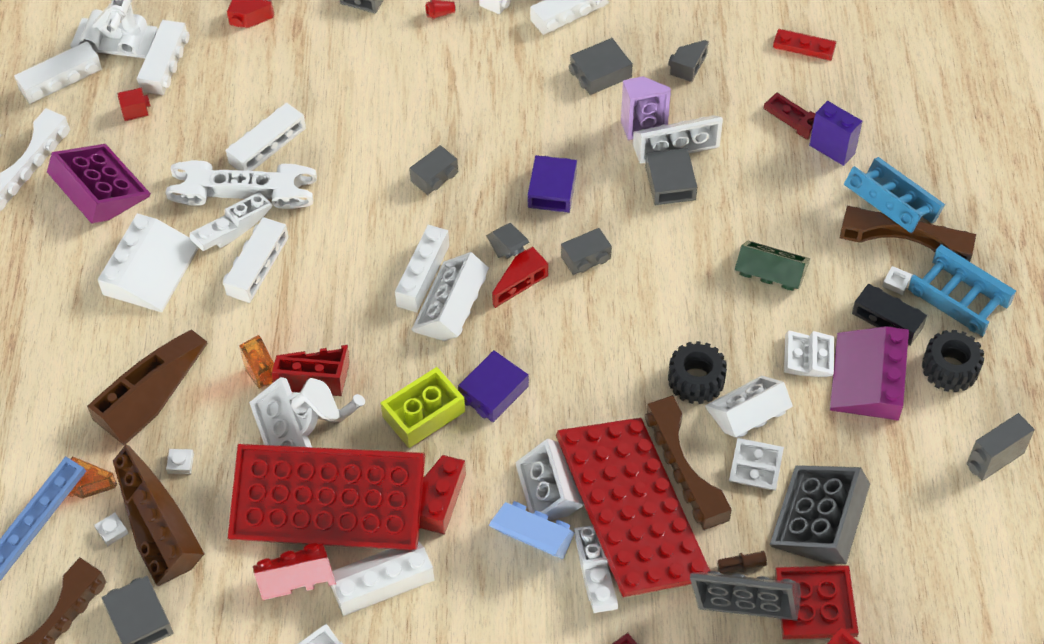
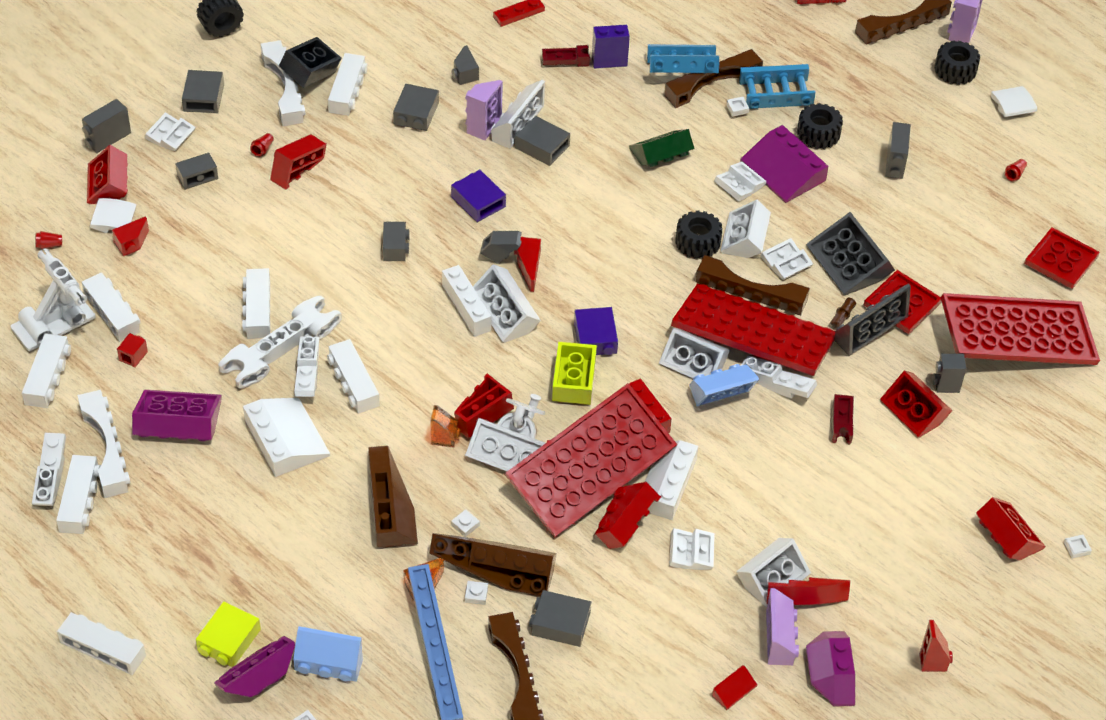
camera: 50 degrees left, 5 degrees down
(446, 38) = (295, 159): none -> red wedge
(586, 251) = (549, 218): dark grey brick -> none
(888, 311) = (753, 126): black brick -> none

